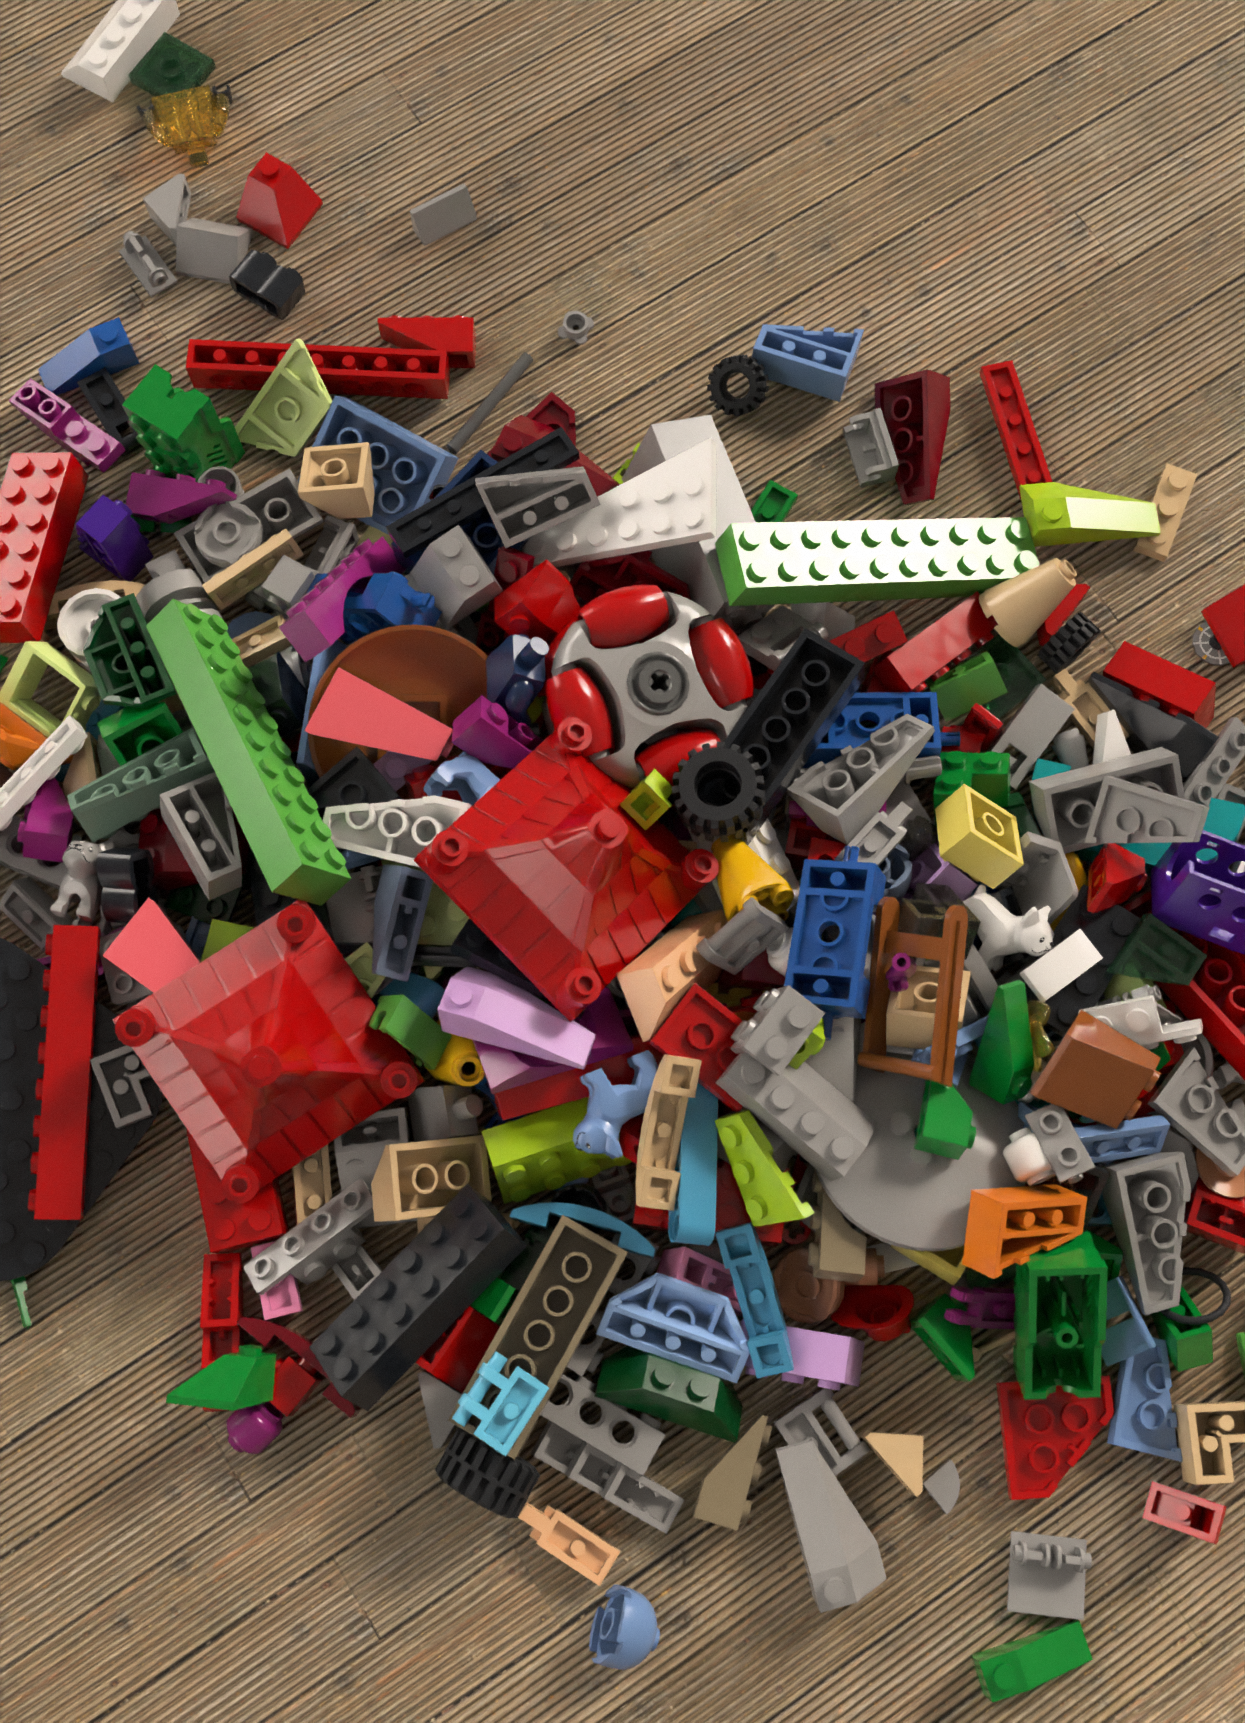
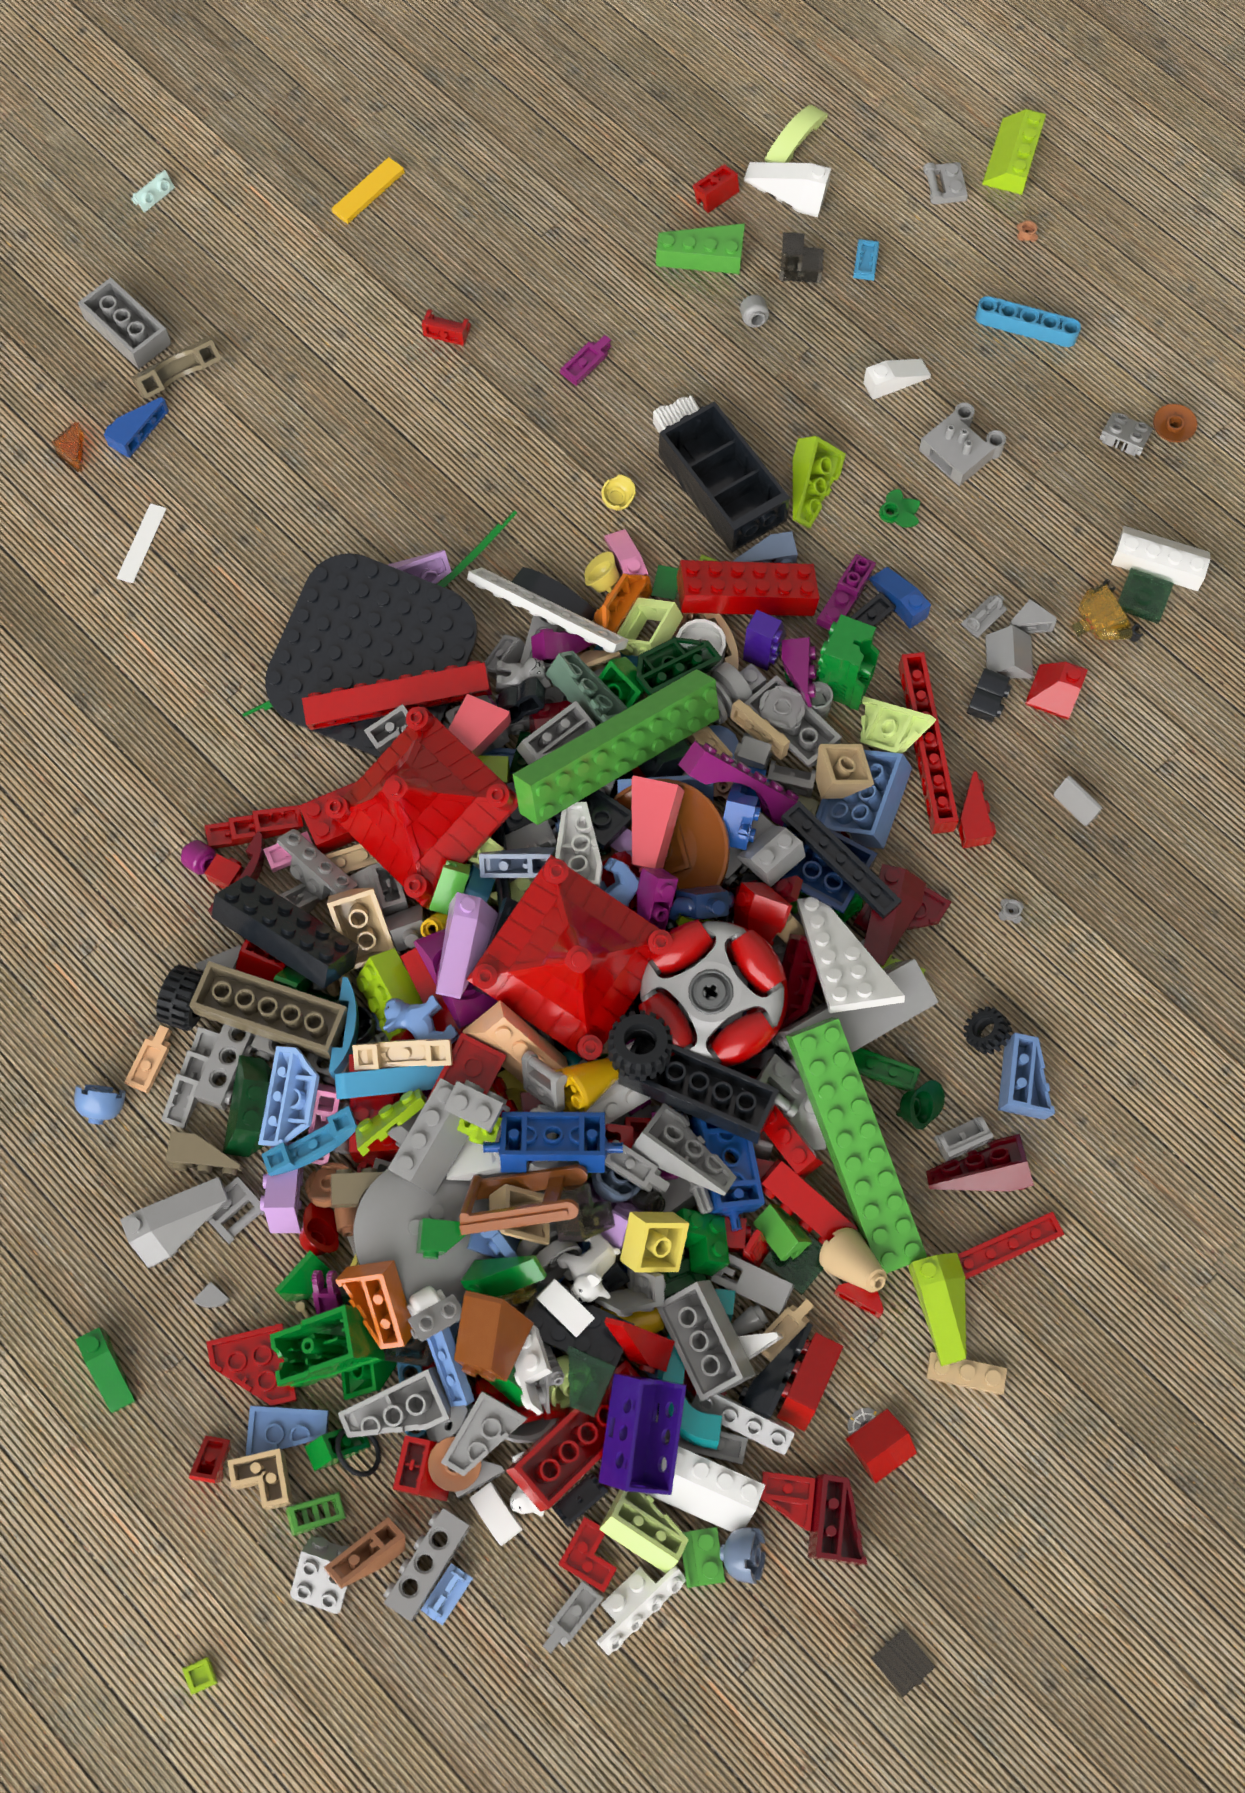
camera: 80 degrees right, 5 degrees down
(230, 1381) = (218, 832): green slope -> none
(489, 403) = (935, 863): dark grey bar -> none
(510, 1410) = (219, 995): medium azure plate -> none
(535, 500) = (835, 890): light grey wedge -> none
(648, 799) = (626, 1000): lime brick -> none
(820, 489) = (922, 1105): none -> dark green piece
(901, 969) = (536, 1188): magenta arm -> none
(901, 1455) = (226, 1263): tan slope -> none
(1047, 1575) = (161, 1374): light grey hinge -> none
(1068, 642) = (833, 1304): black tyre -> none
(1128, 1336) = (320, 1402): medium blue piece -> none
(1143, 815) = (687, 1352): light grey wing -> none

